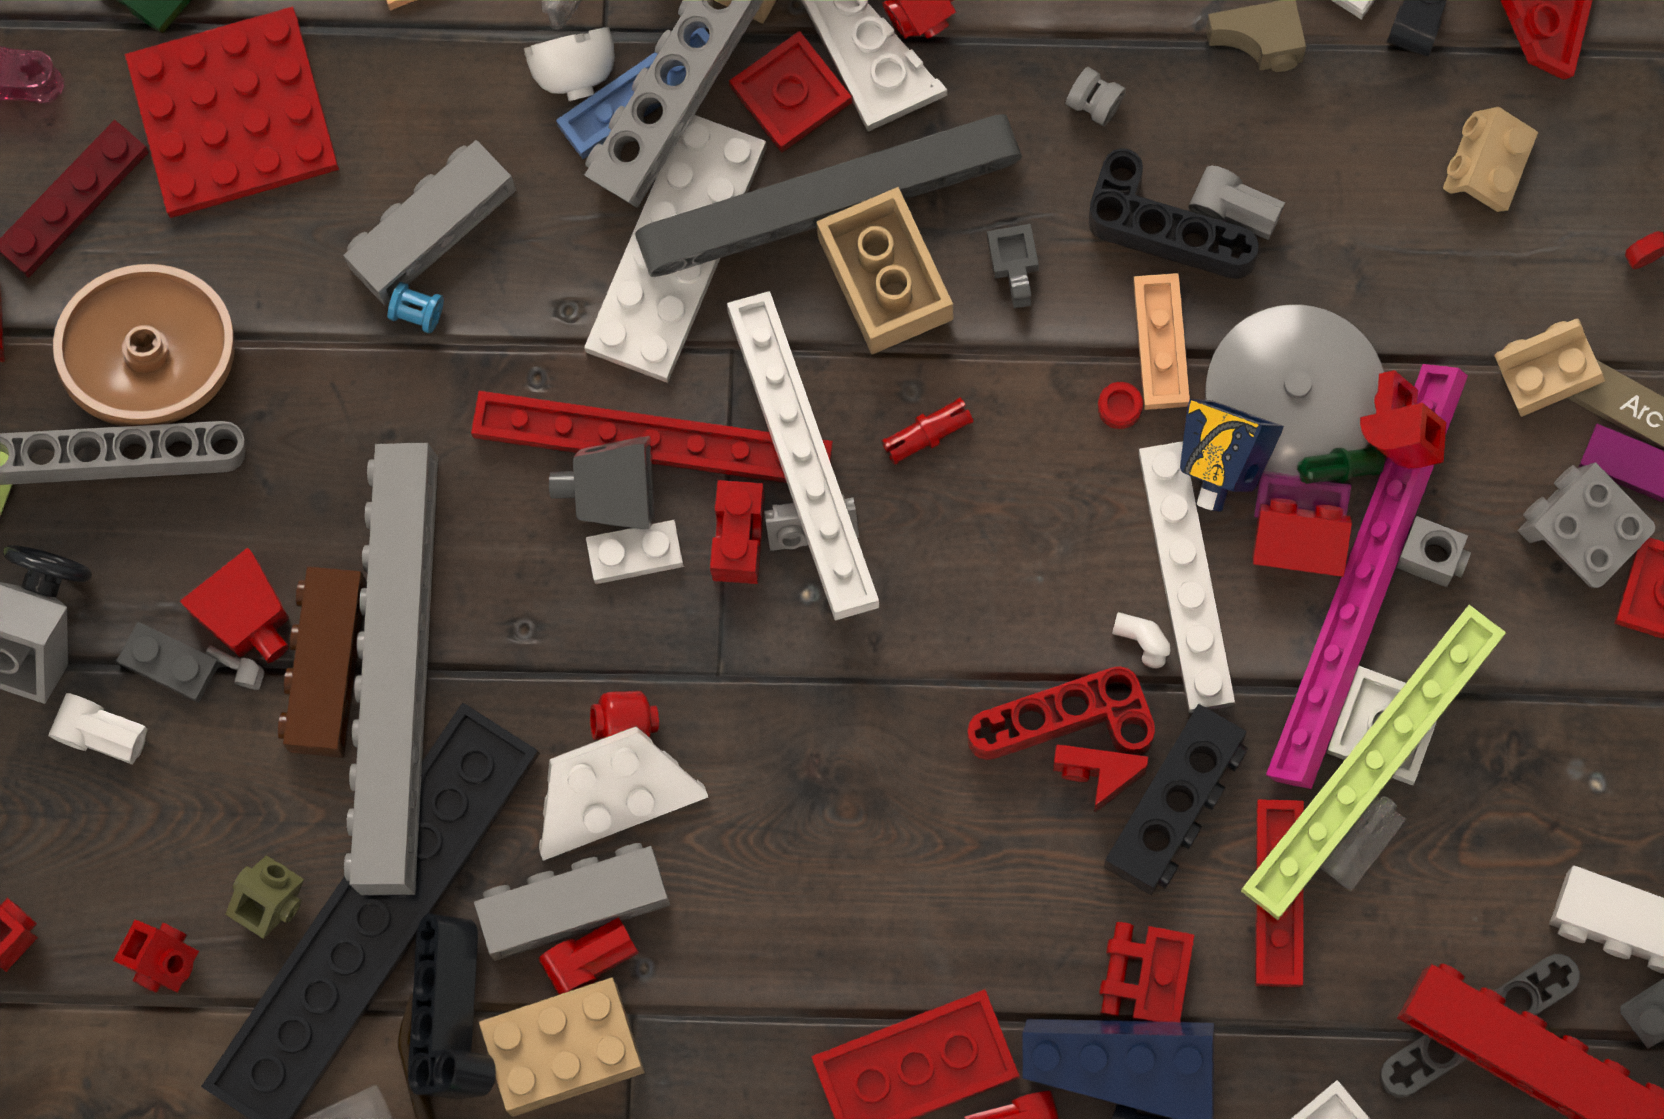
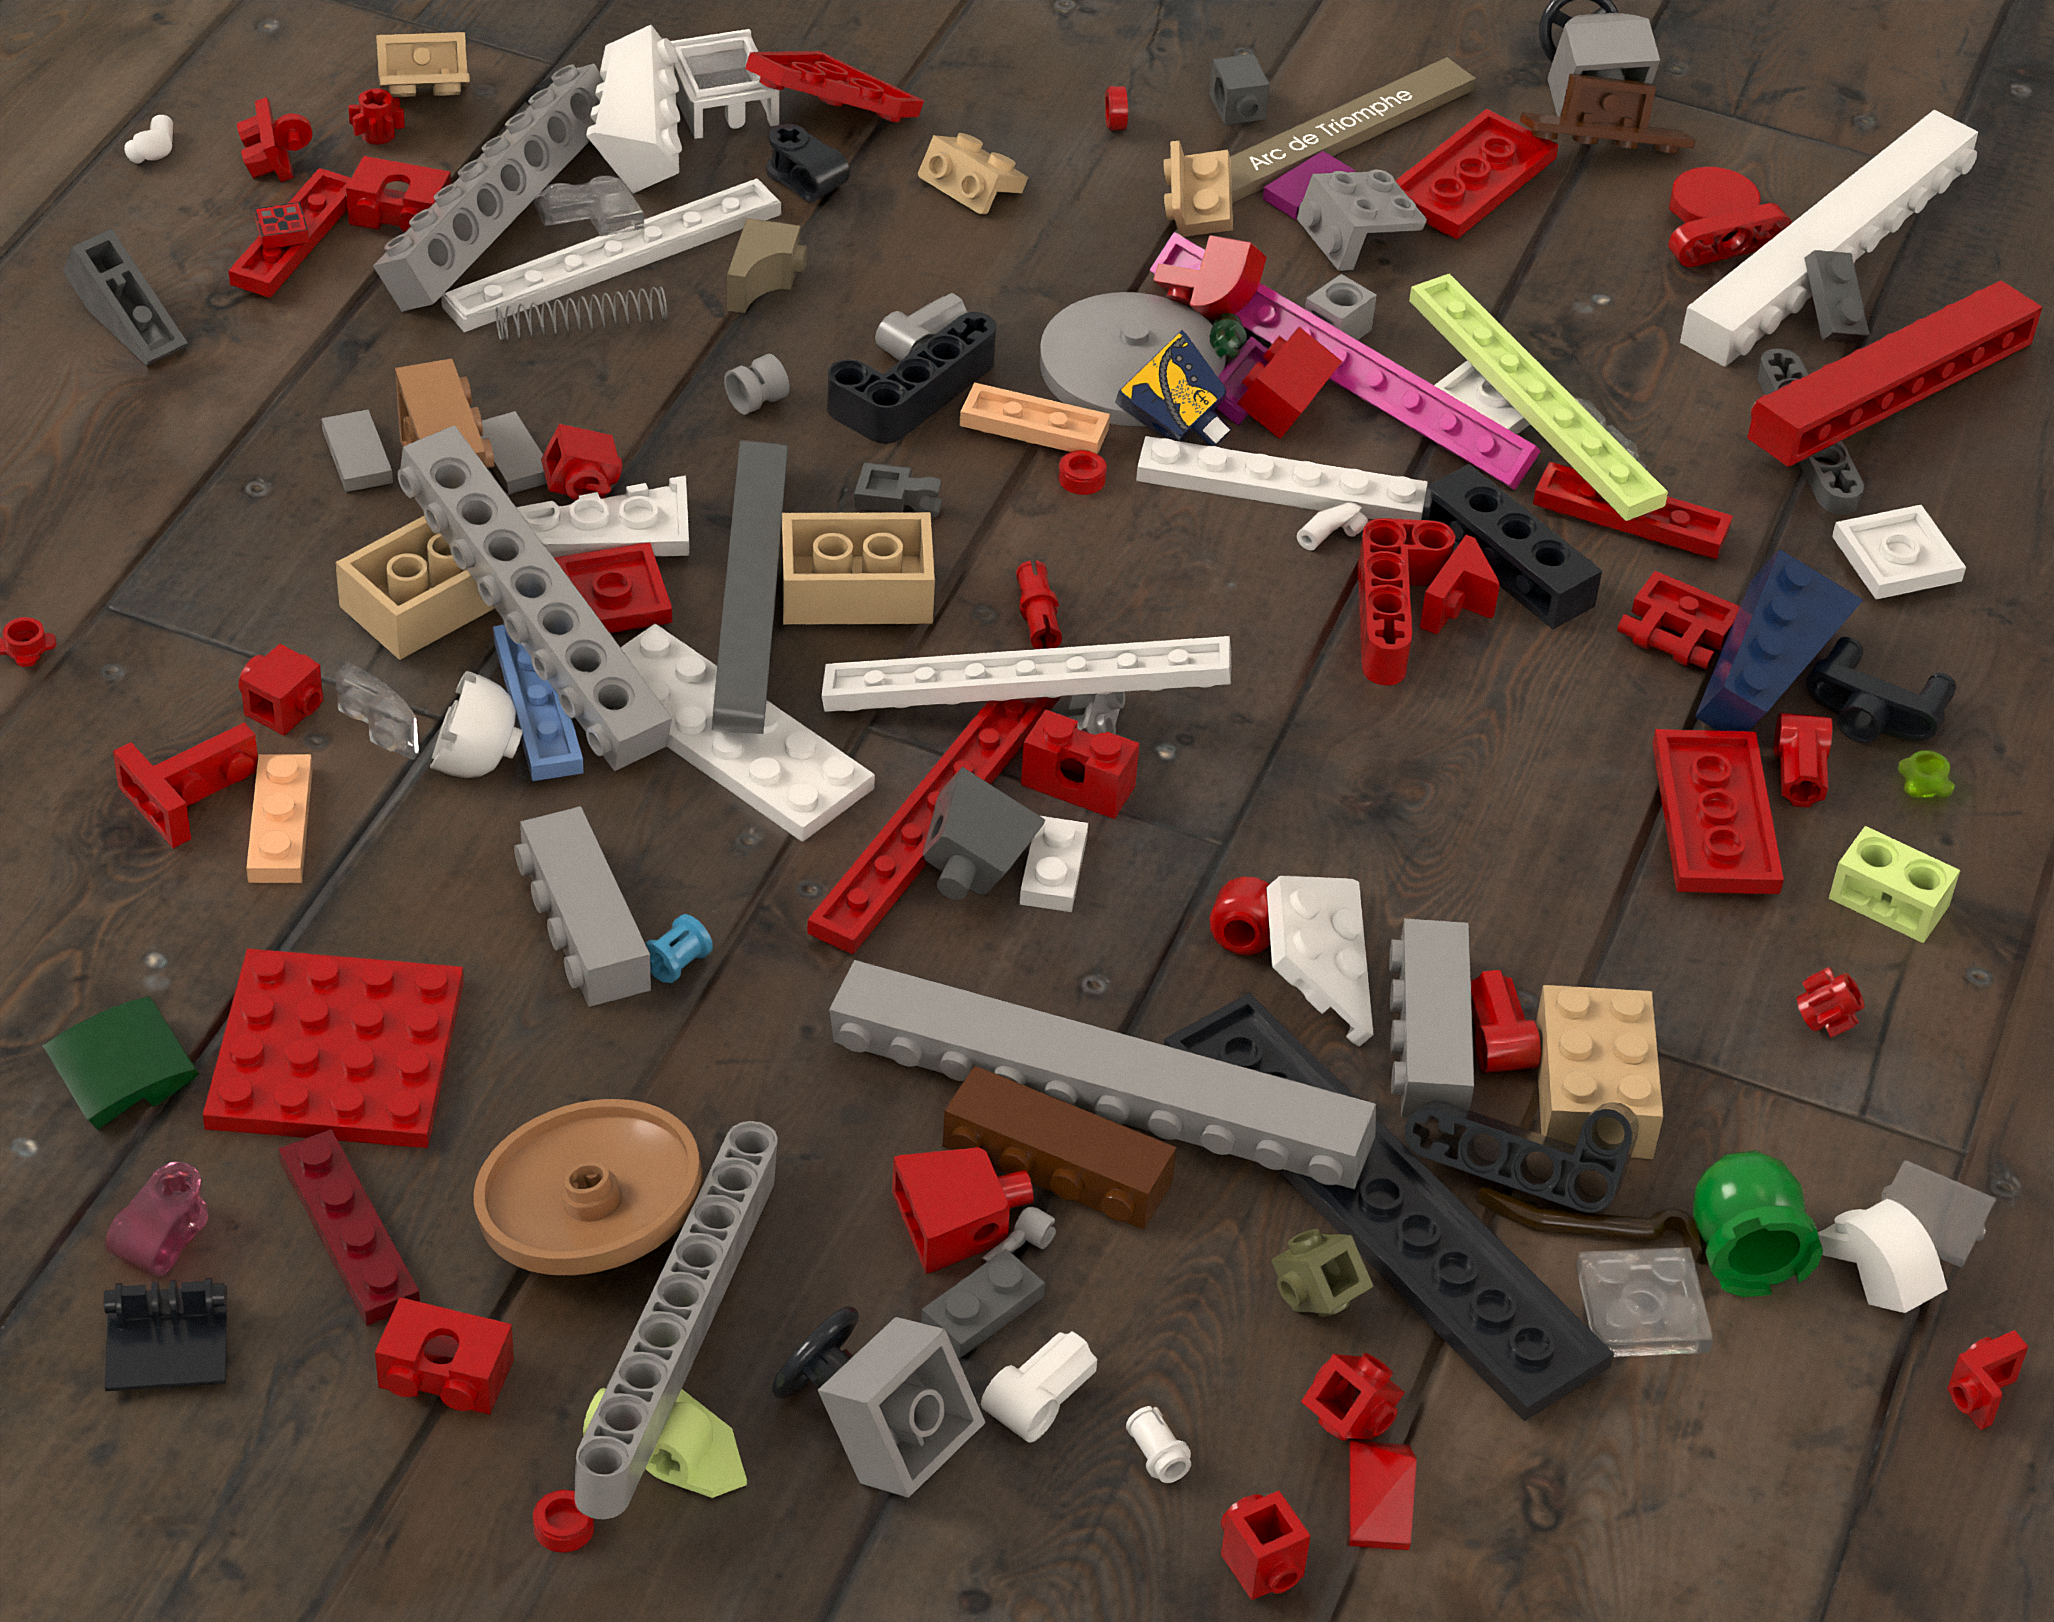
camera: 80 degrees left, 30 degrees down
(78, 832) = (1166, 1456): none -> white pin
(100, 1004) = (1381, 1494): none -> red slope

